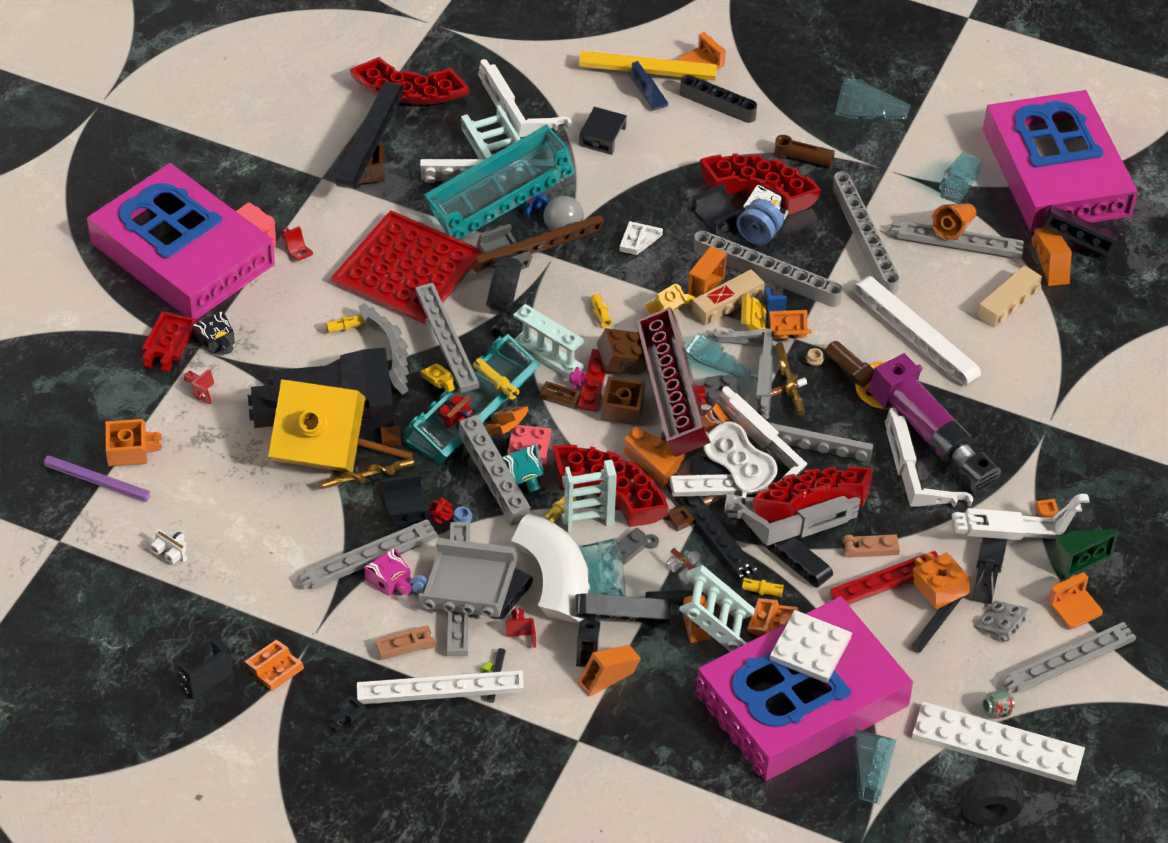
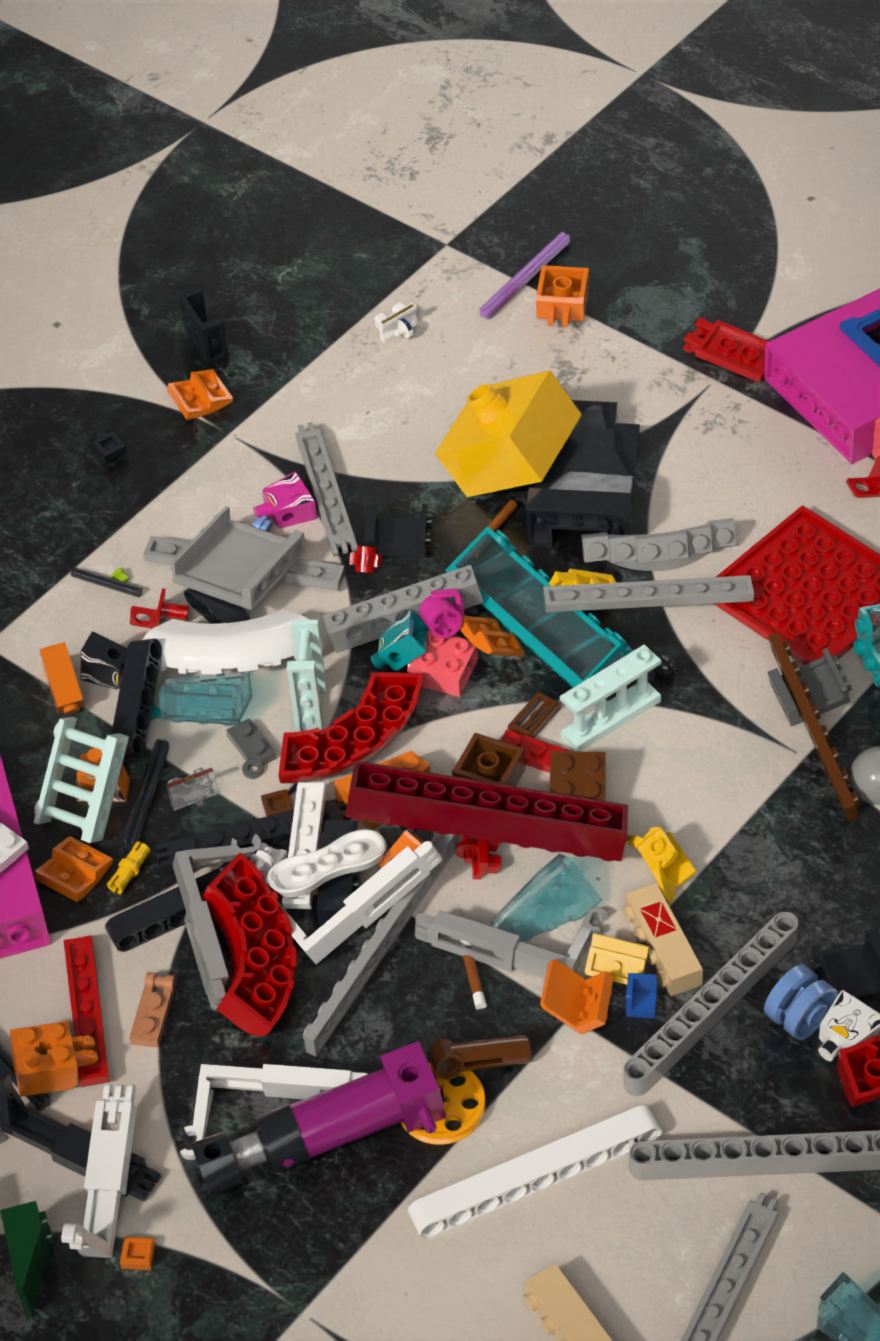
camera: 110 degrees right, 0 degrees up
(200, 384) = (643, 367): red bracket -> none
(215, 334) = (727, 389): black torso -> none
(344, 323) = (716, 502): yellow pin -> none
(373, 469) = (449, 499): pearl gold piece -> none
(391, 436) = (515, 533): reddish brown tile -> none
(405, 642) = (182, 504): nougat plate -> none
(440, 687) = (101, 524): white plate -> none
(458, 413) = (516, 595): red hips -> none
(462, 514) = (356, 584): medium blue plate -> none
(501, 383) = (545, 634): yellow pin -> none
(504, 284) = (729, 664): black tyre -> none
(504, 437) = (440, 614): none -> dark pink piece
(556, 510) = (336, 681): yellow pin -> none
(577, 378) = (552, 733): dark pink plate -> none
(601, 310) = (677, 786): yellow pin -> none
(639, 237) = (814, 856): white wing -> none
(707, 272) = (703, 910): orange window -> none
(717, 383) = (481, 884): dark grey plate -> none
(790, 384) = (469, 977): pearl gold piece -> none
(814, 357) = (519, 1024): tan plate -> none
(952, 220) = (747, 1277): orange cone -> none

